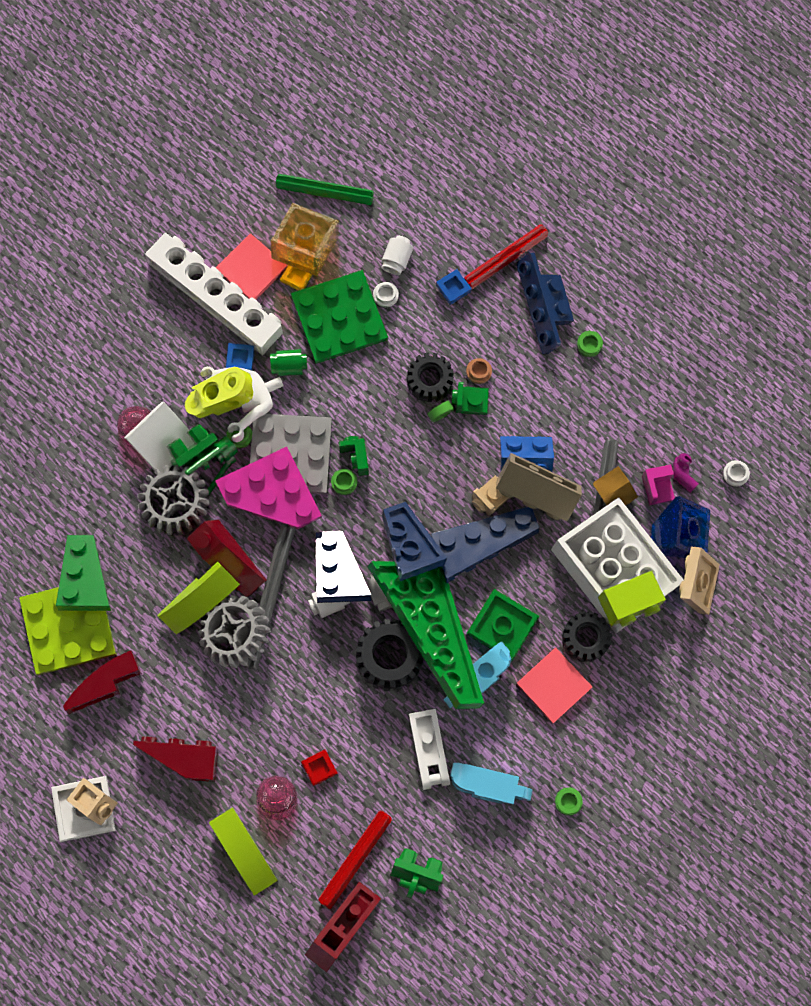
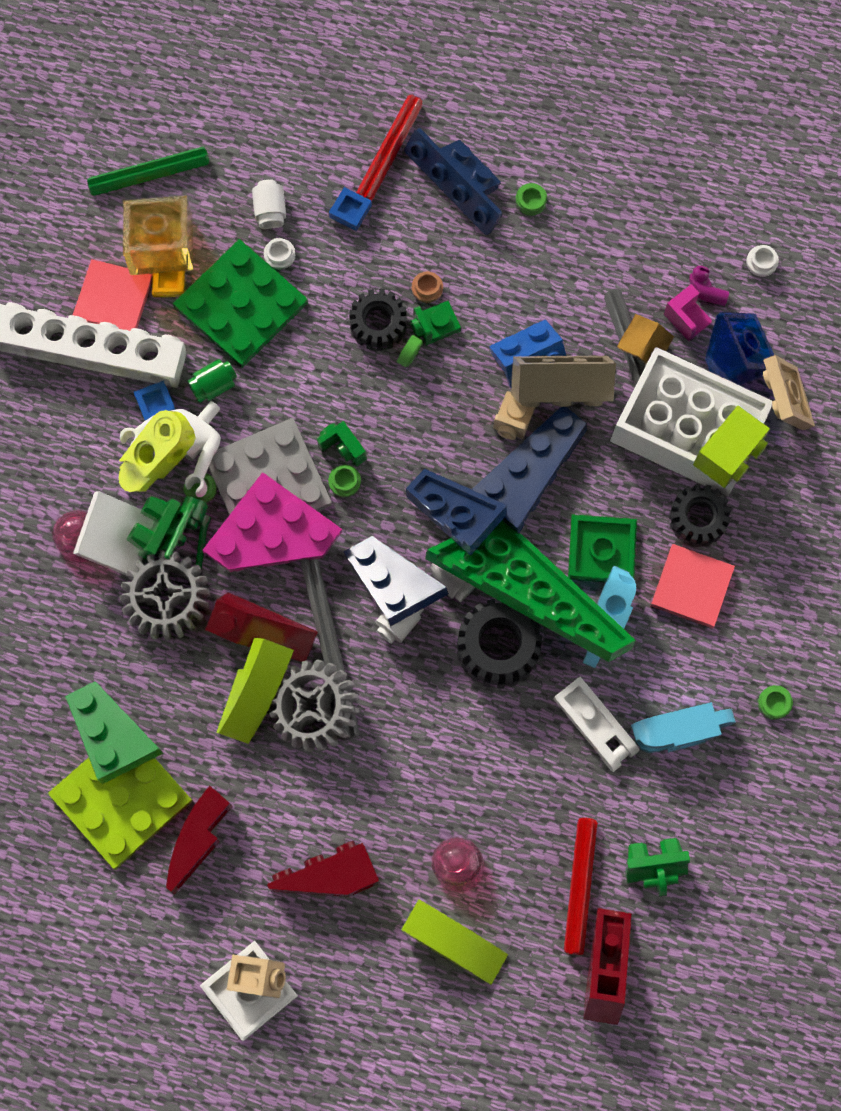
camera: 25 degrees left, 0 degrees up
(319, 767) = (486, 807): red tile -> none

